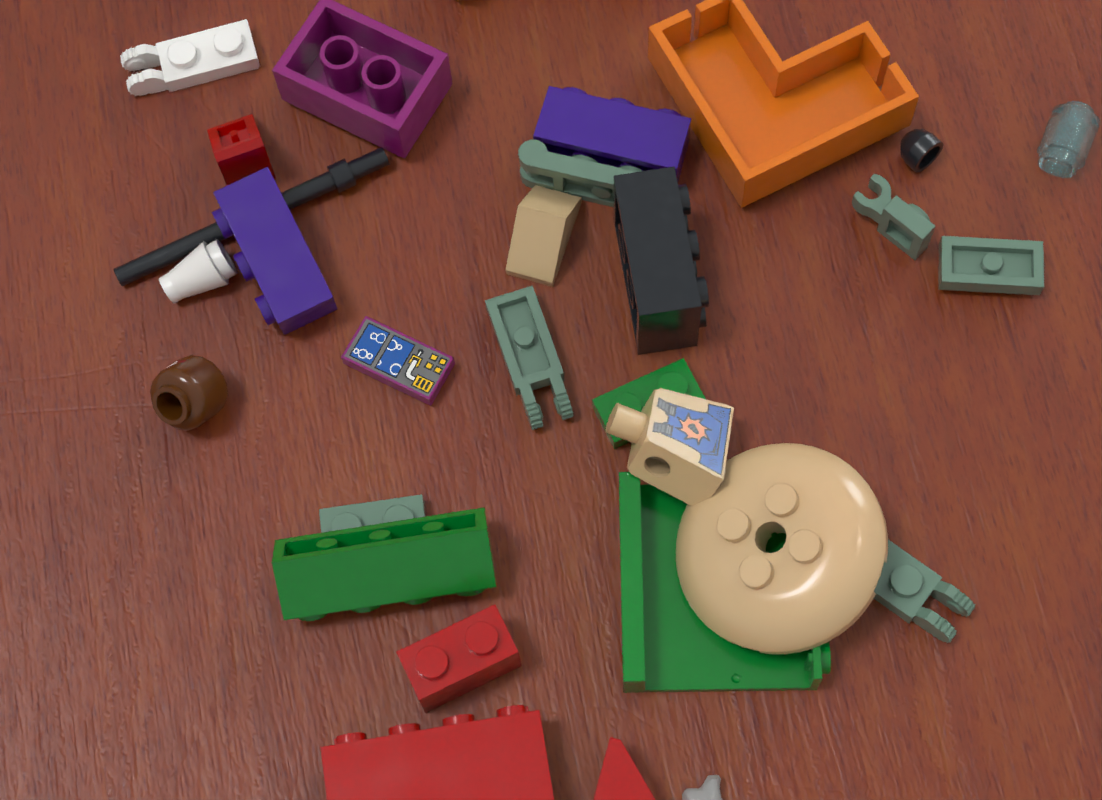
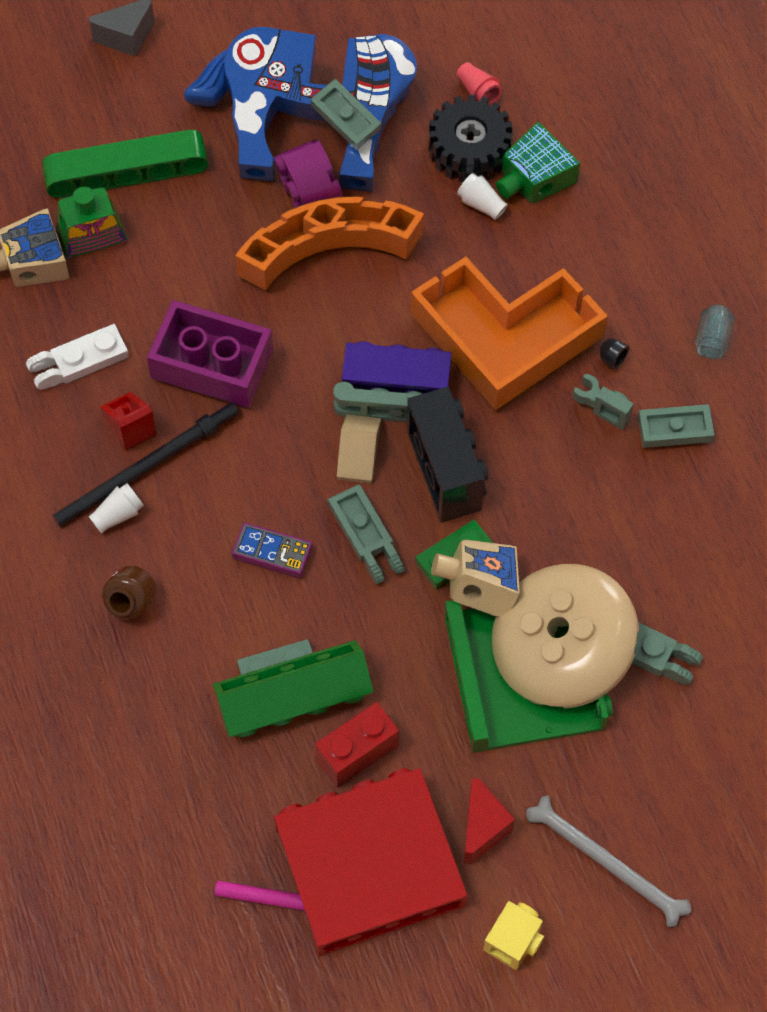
camera: 15 degrees left, 5 degrees down
(273, 252) = (170, 486): dark purple brick -> none

